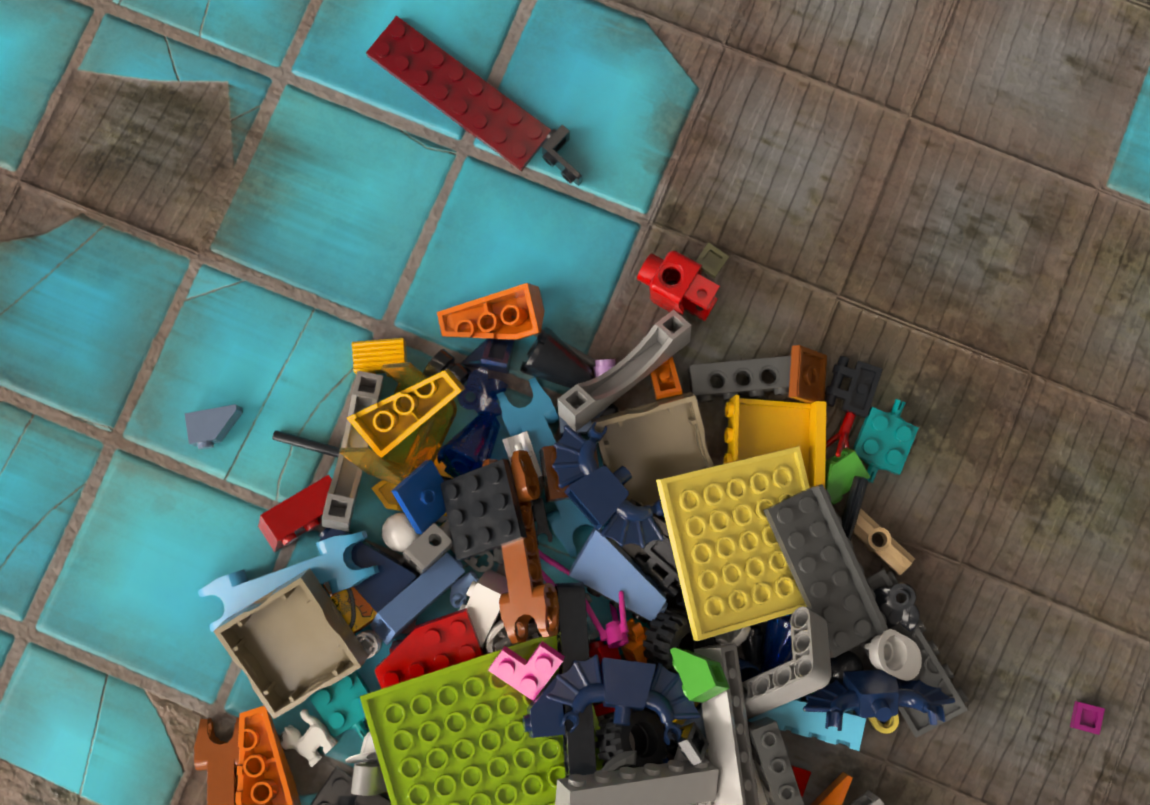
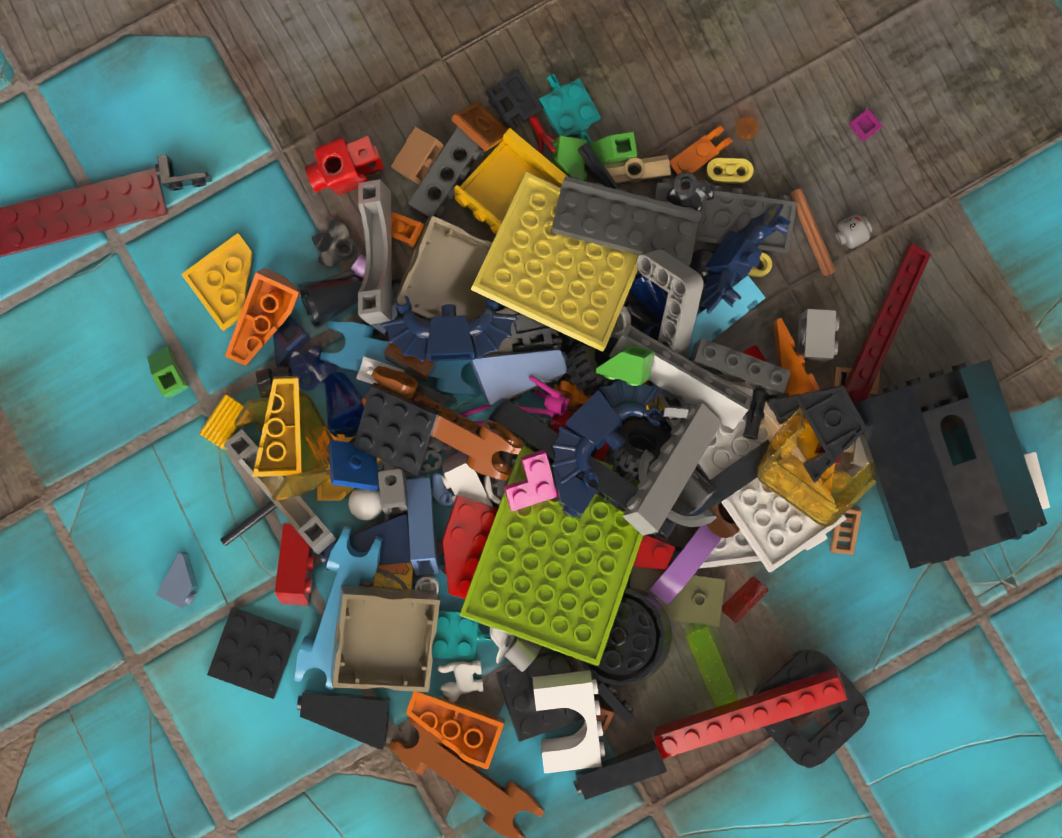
camera: 55 degrees left, 5 degrees up
(197, 535) = (253, 653): none -> black plate
(203, 662) = (348, 714): none -> black slope
(384, 275) = (167, 373): none -> bright green slope
(500, 260) = (223, 280): none -> yellow plate
(604, 327) = (332, 242): none -> black plate
(712, 260) = (344, 127): olive plate -> none
(737, 341) = (417, 156): none -> medium nougat brick
(883, 508) = (615, 148): none -> bright green slope
(895, 654) = (721, 221): white piece -> none
(939, 585) = (699, 153): none -> orange hinge
(946, 624) = (729, 170): none -> light yellow plate
(952, 745) = (812, 232): none -> nougat axle
(983, 783) = (853, 231): none -> light grey head
(995, 611) = (746, 128): none -> clear orange plate

